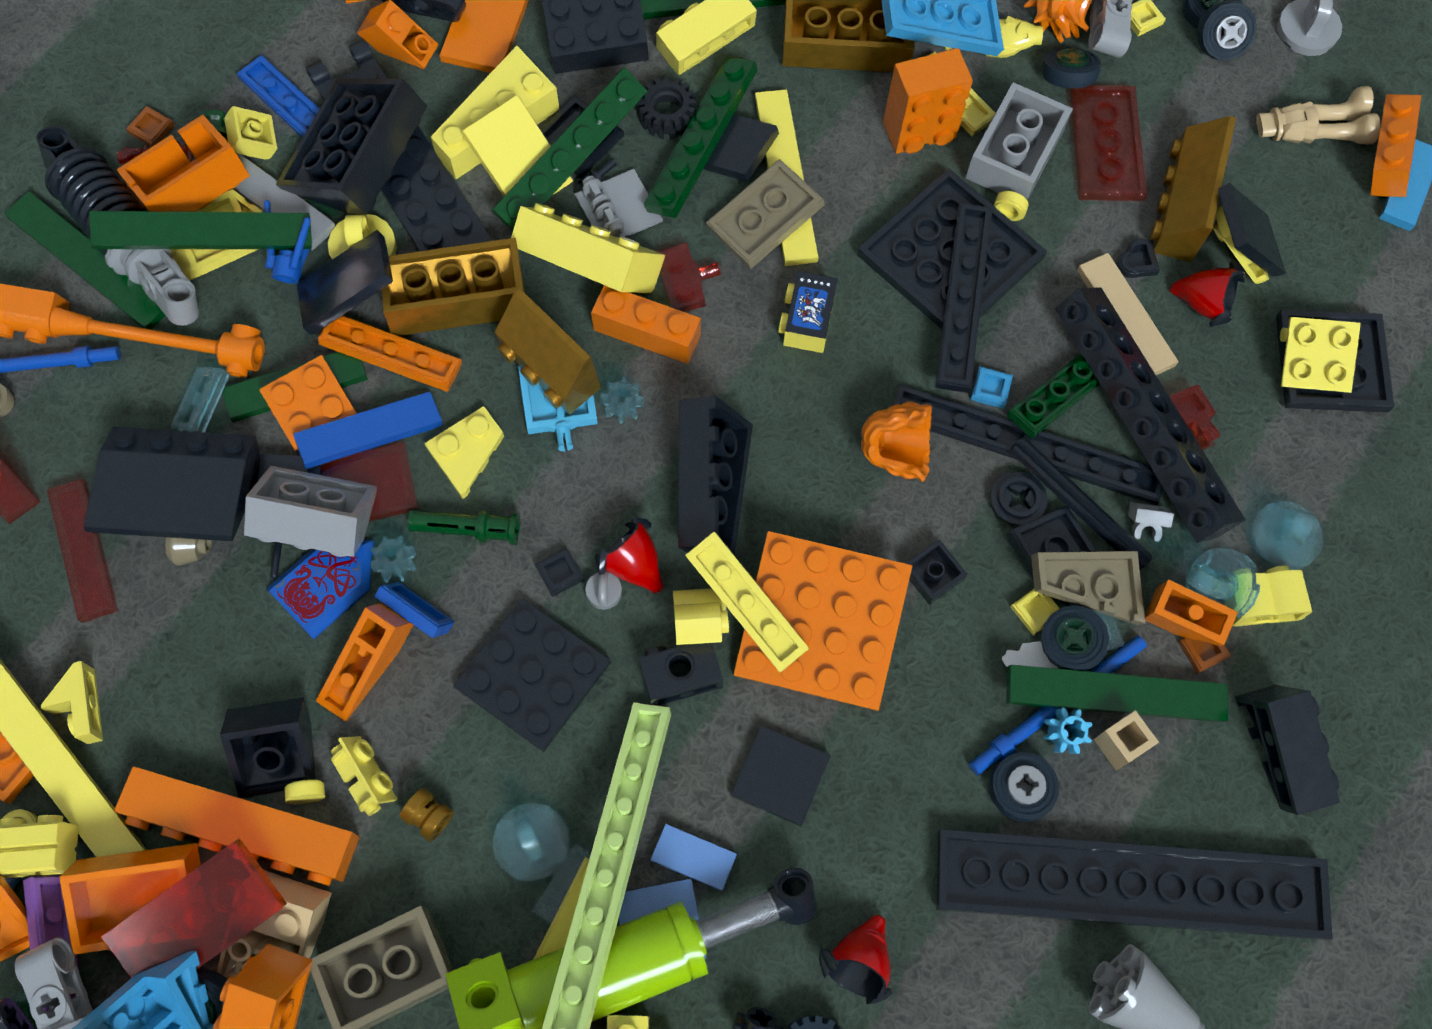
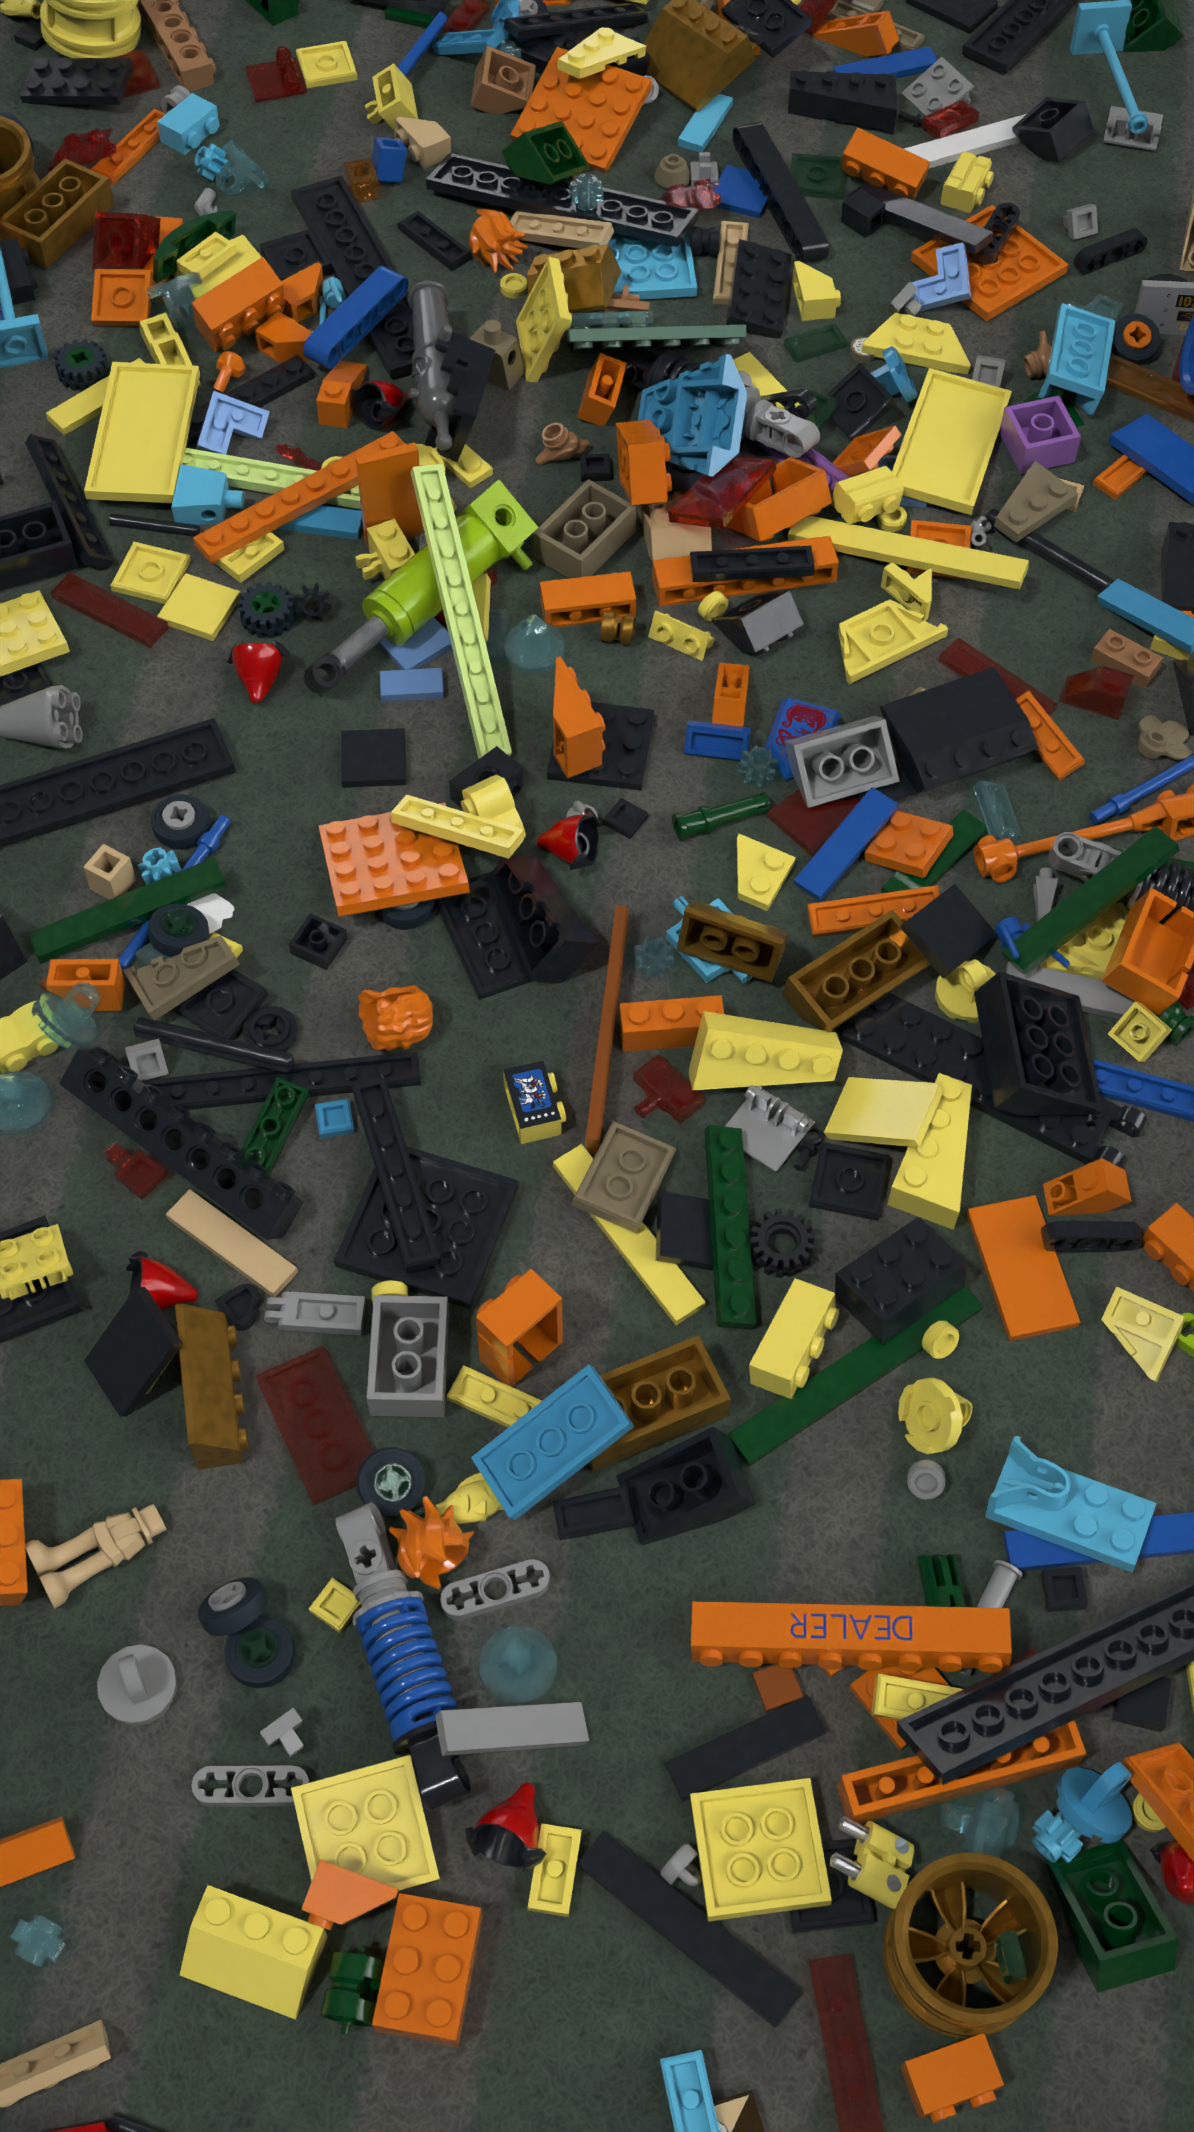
camera: 155 degrees right, 10 degrees down
(89, 435) = (1054, 747): none -> orange tile
(155, 659) = (883, 637): none -> light yellow wing
(226, 298) = (1044, 892): none -> light grey piece
(230, 808) = (752, 563): none -> black tile
(436, 874) = (586, 598): none -> orange brick
(566, 666) = (575, 724): none -> orange slope
(572, 147) = (839, 1143): dark green plate -> none
(703, 353) = (607, 1030): none -> dark orange tile
(770, 497) = (483, 938): none -> black tile
(1077, 221) = (317, 1313): none -> light grey hinge

